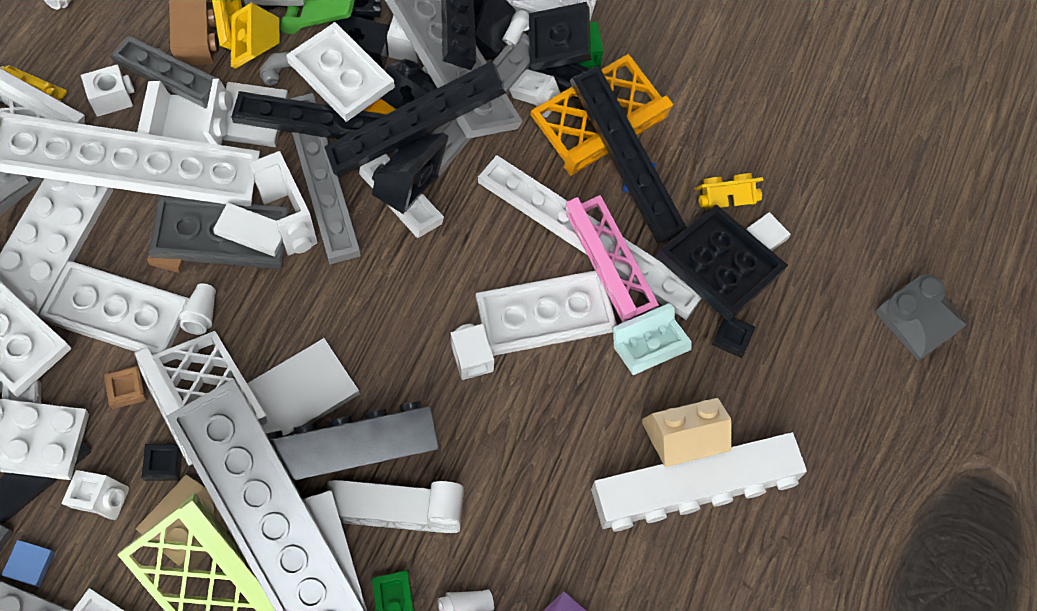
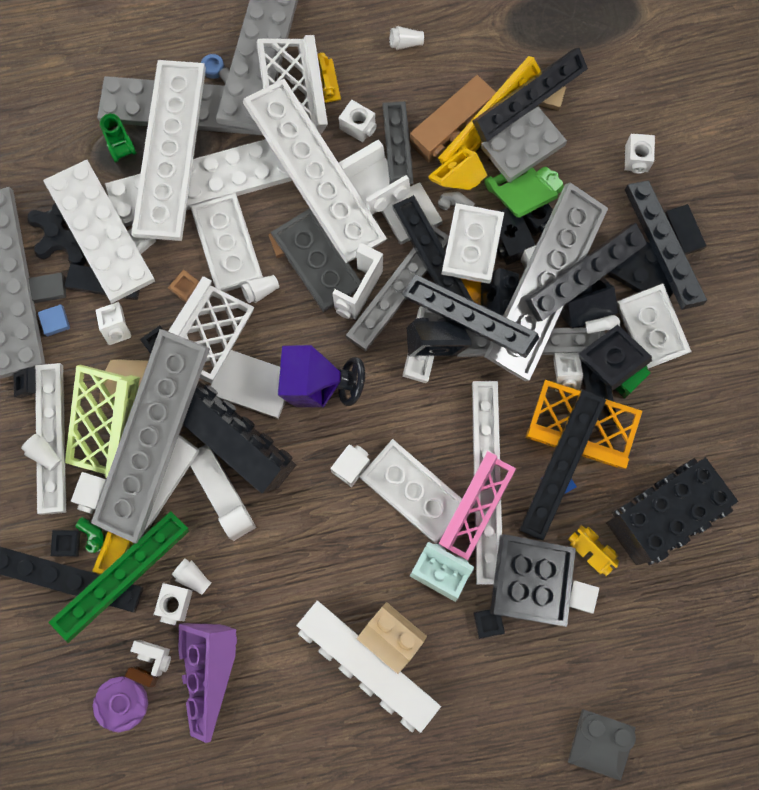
camera: 60 degrees right, 10 degrees up
(249, 229) = (328, 274): white tile -> none
(351, 312) = (311, 379): none -> dark purple piece
(745, 96) = (672, 512): none -> black brick

